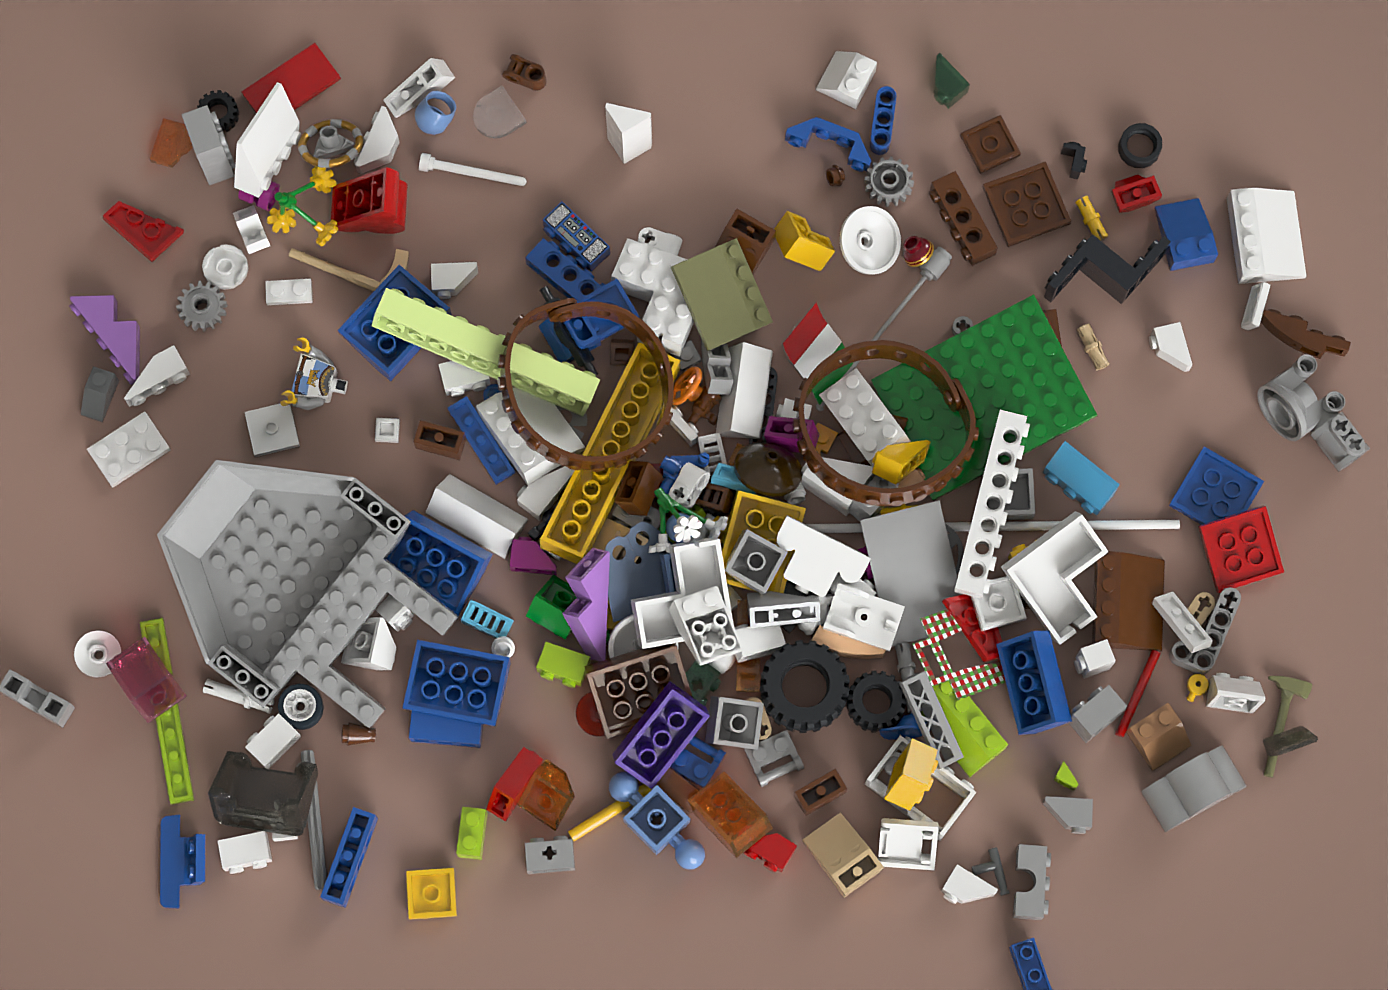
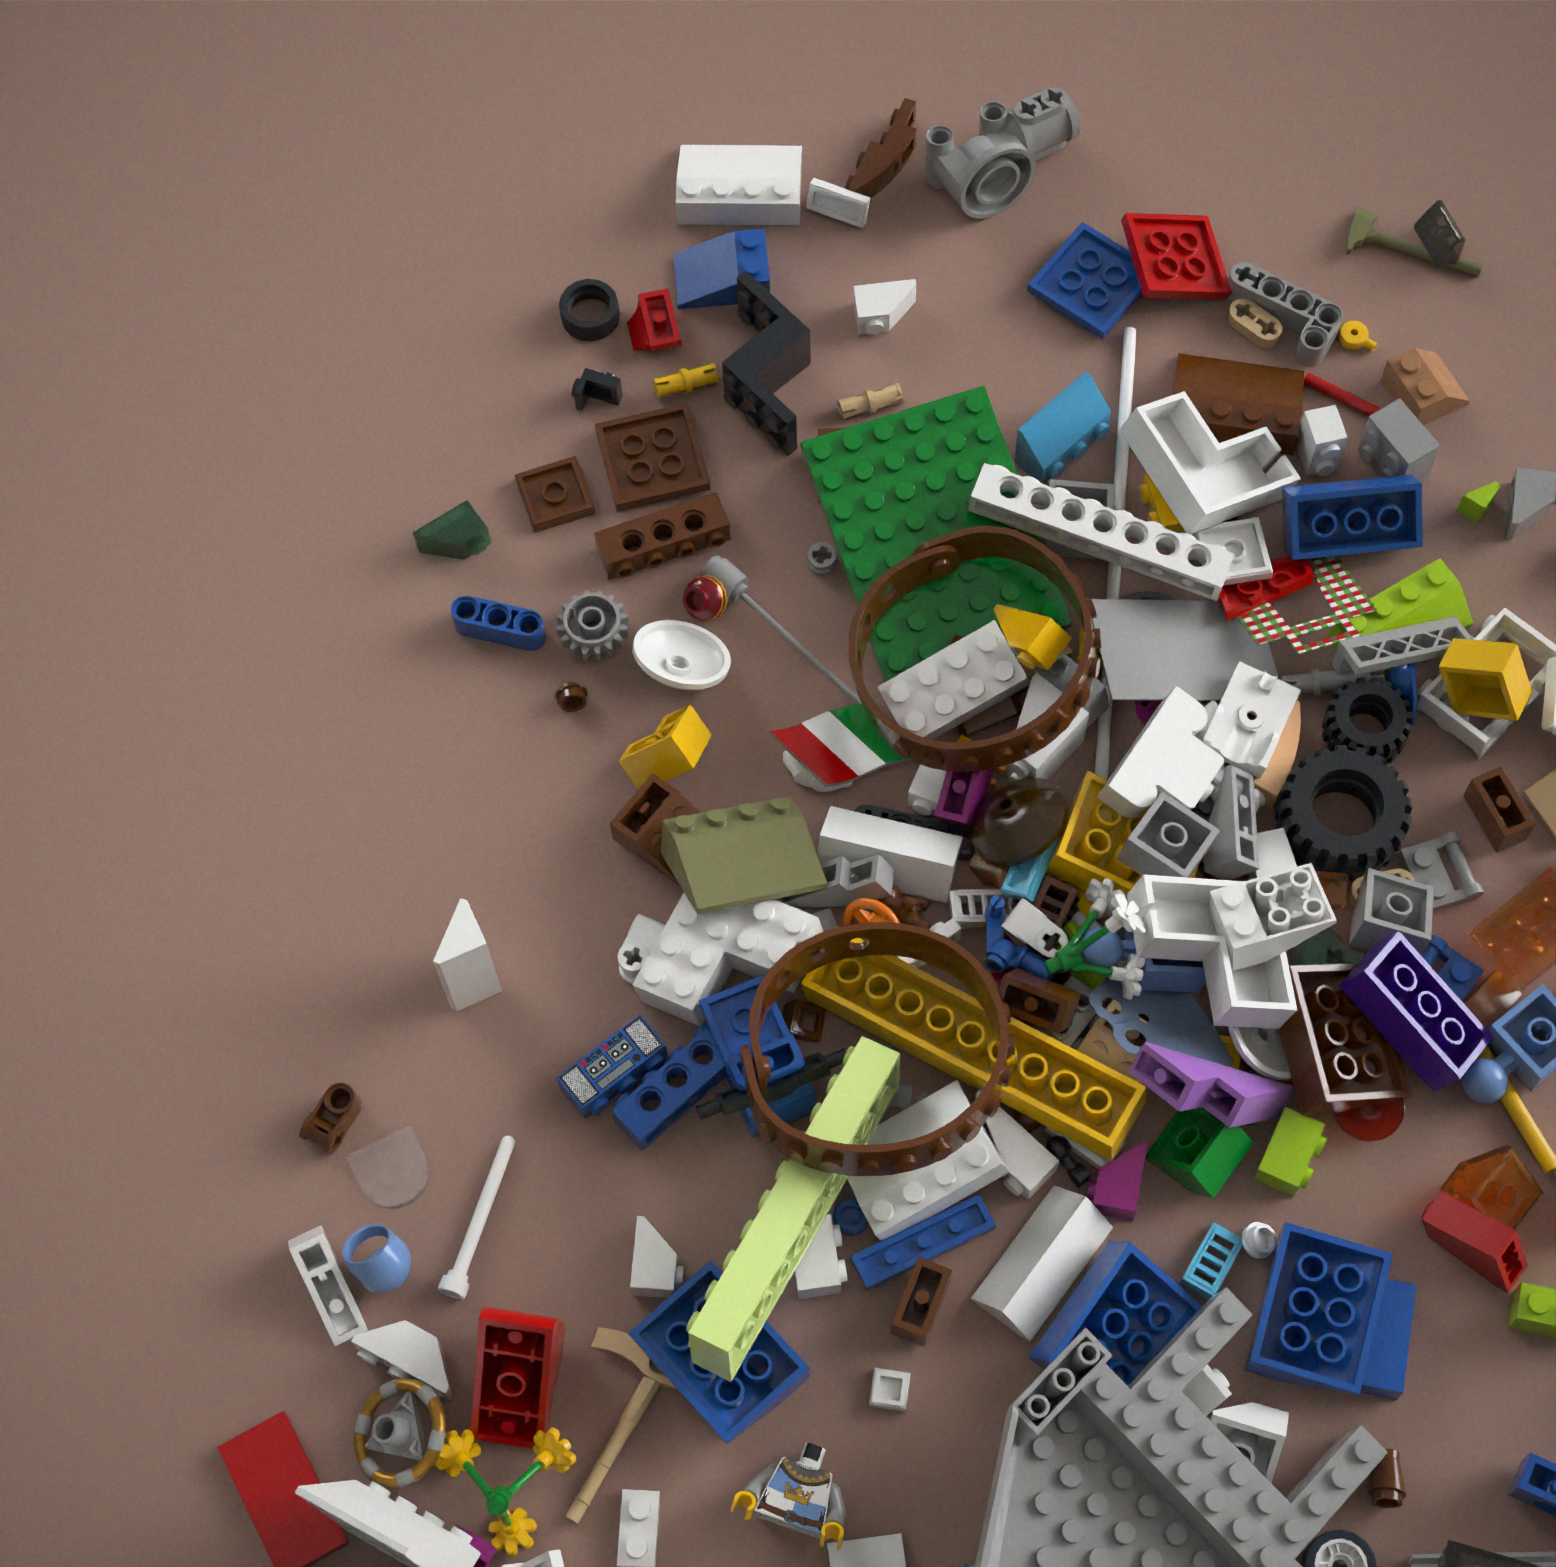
camera: 80 degrees left, 10 degrees down
(801, 133) = (543, 660): blue slope -> none
(847, 77) = (423, 662): white slope -> none
(1182, 622) = (1275, 332): white plate -> none
(1193, 788) = (1503, 350): light grey brick -> none
(1234, 693) = (1375, 281): white slope -> none

